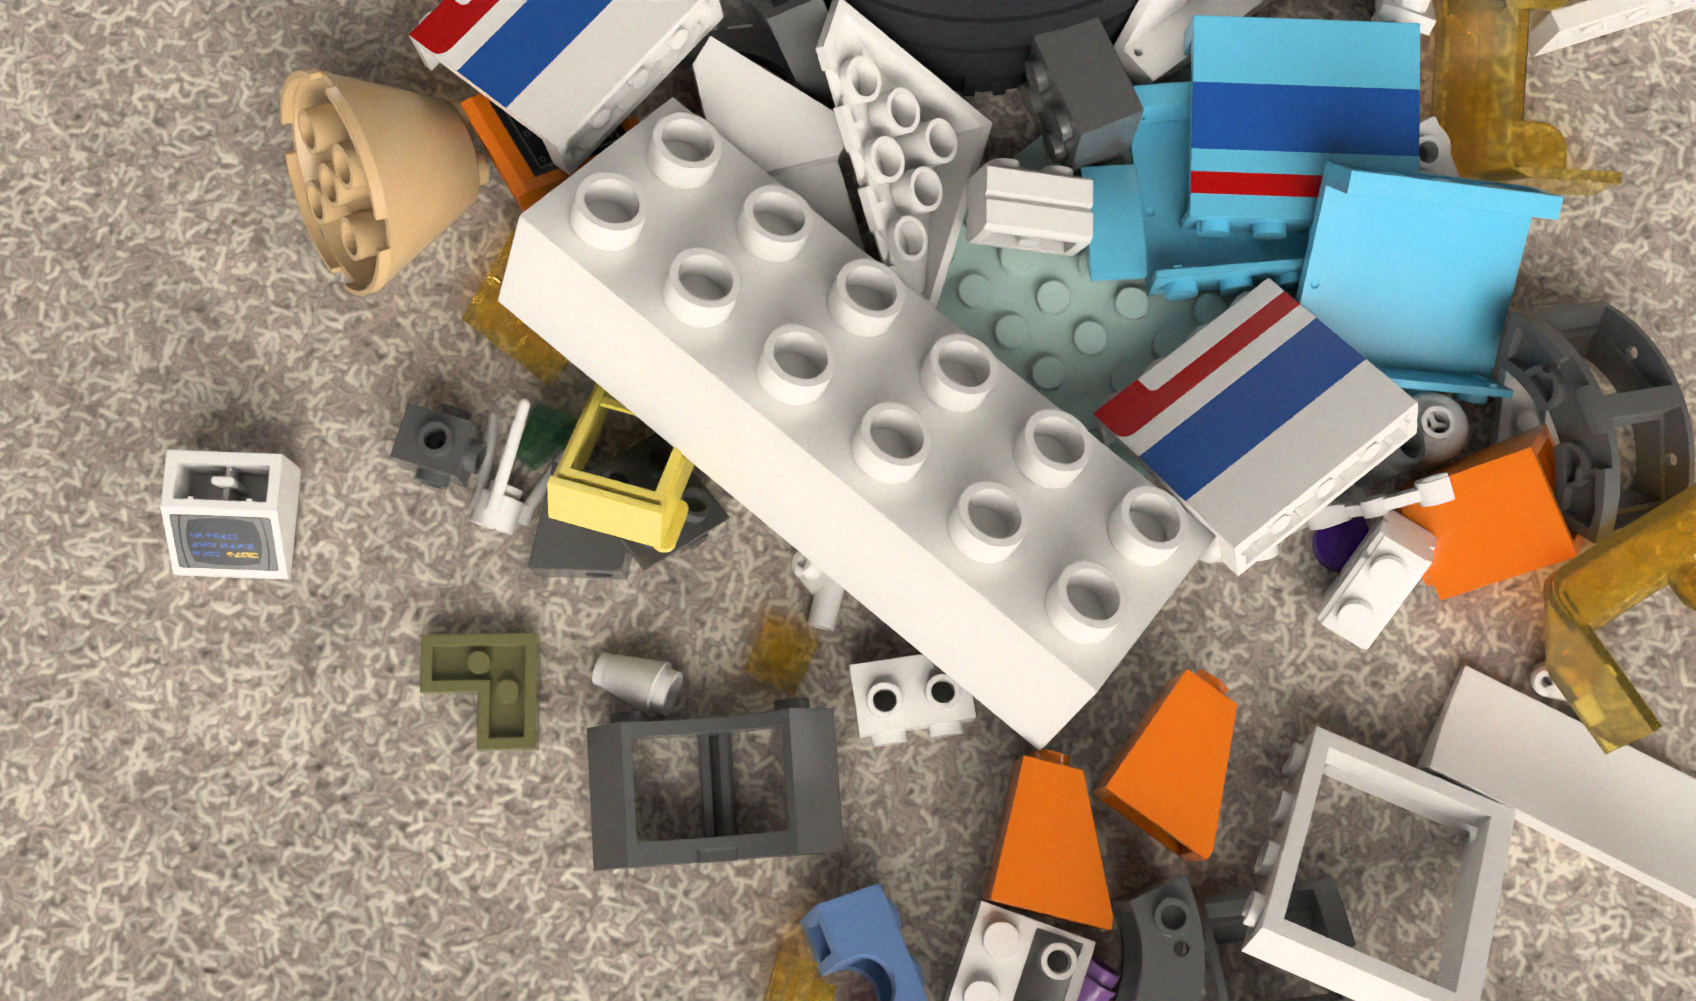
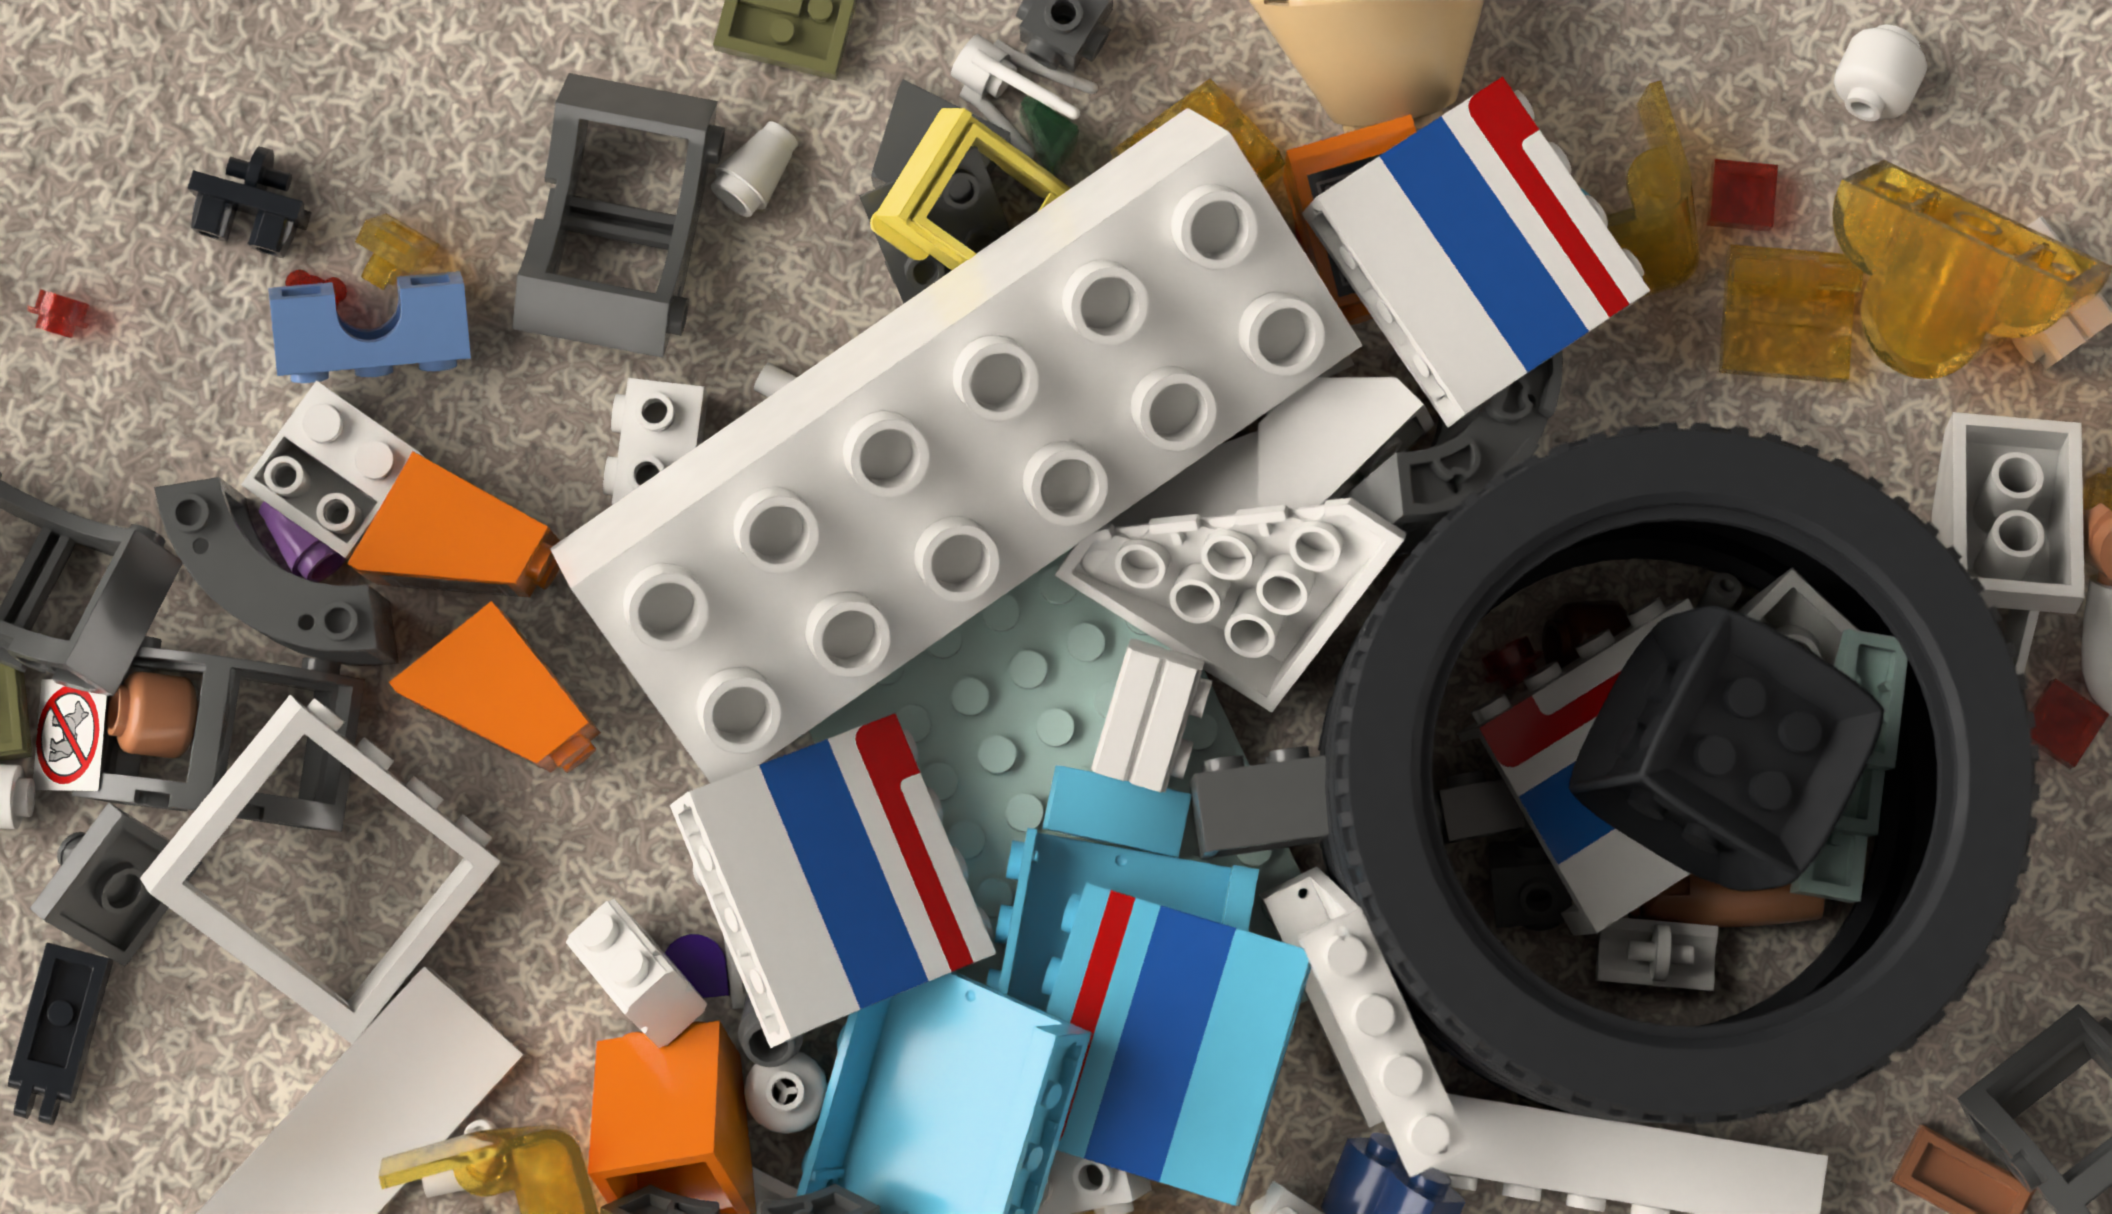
camera: 105 degrees right, 5 degrees up
(781, 656) = (741, 326): clear yellow tile -> none
(1427, 491) = (706, 1043): white piece -> none

